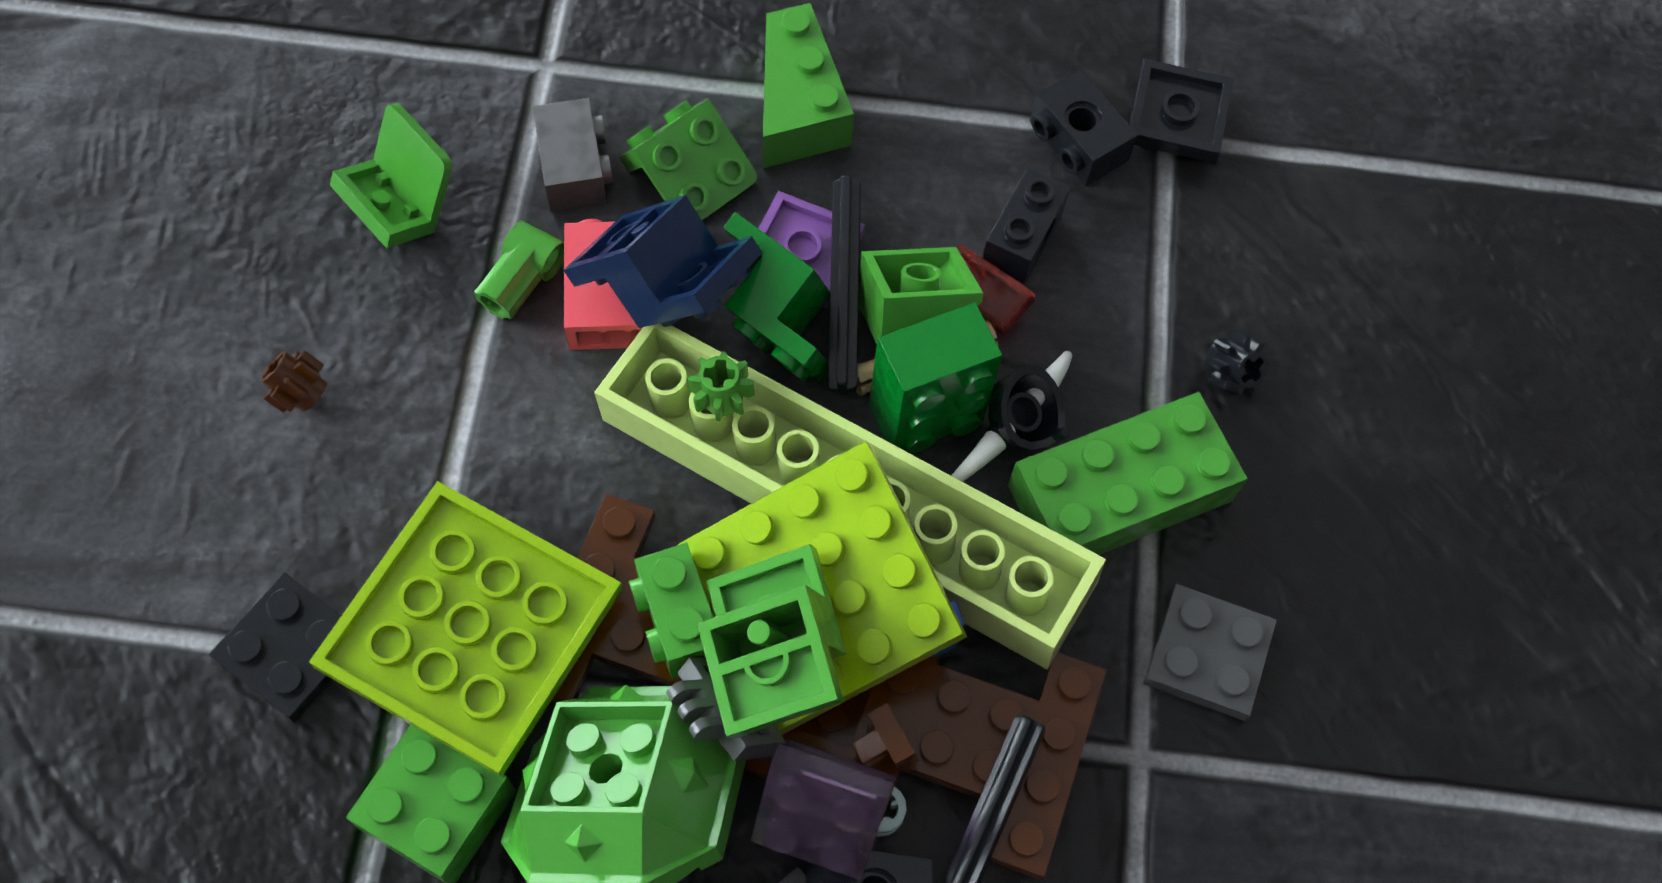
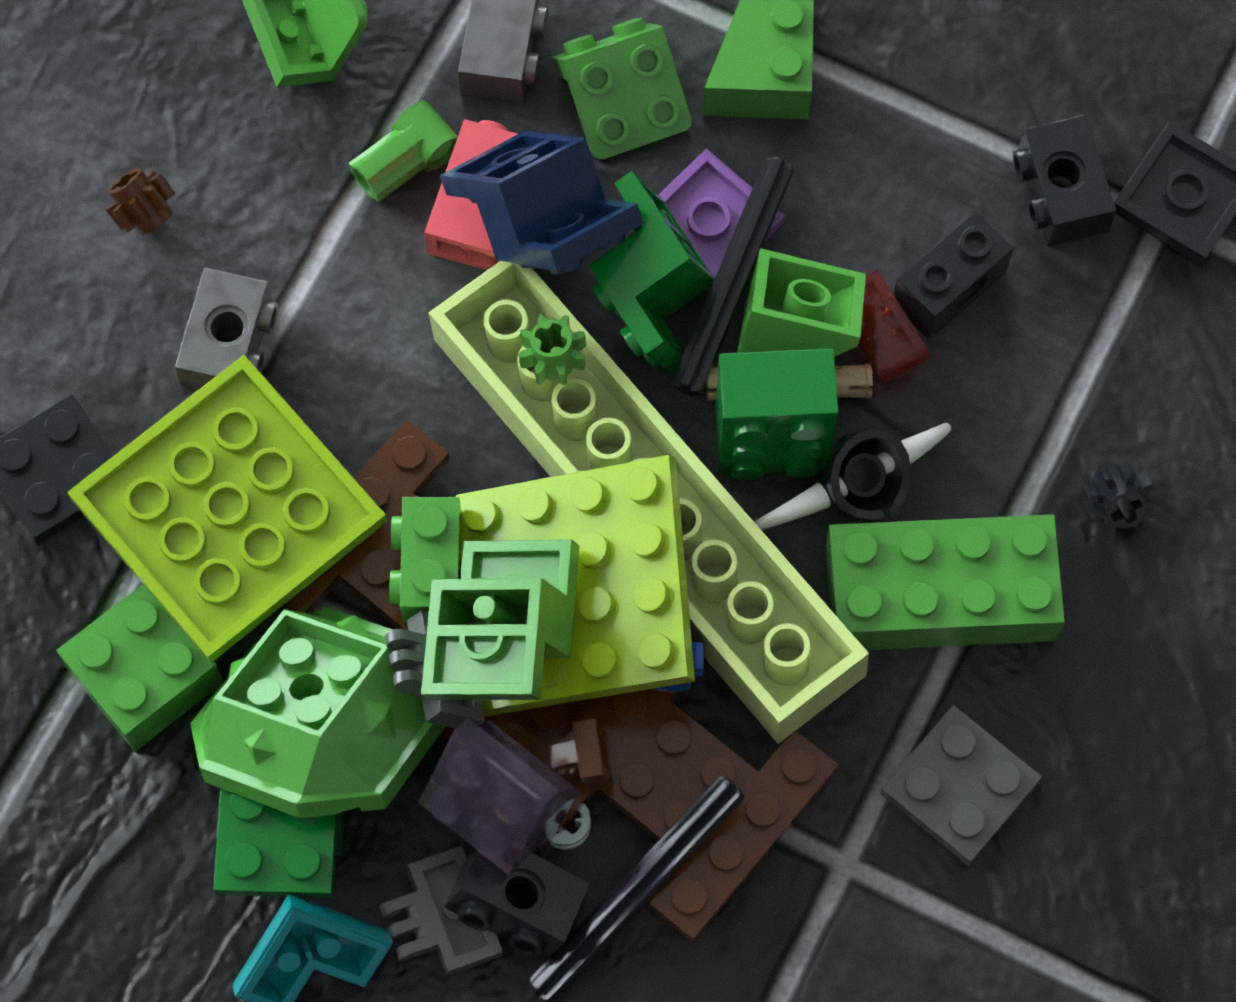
camera: 25 degrees right, 5 degrees up
(397, 448) = (221, 304): none -> flat silver brick

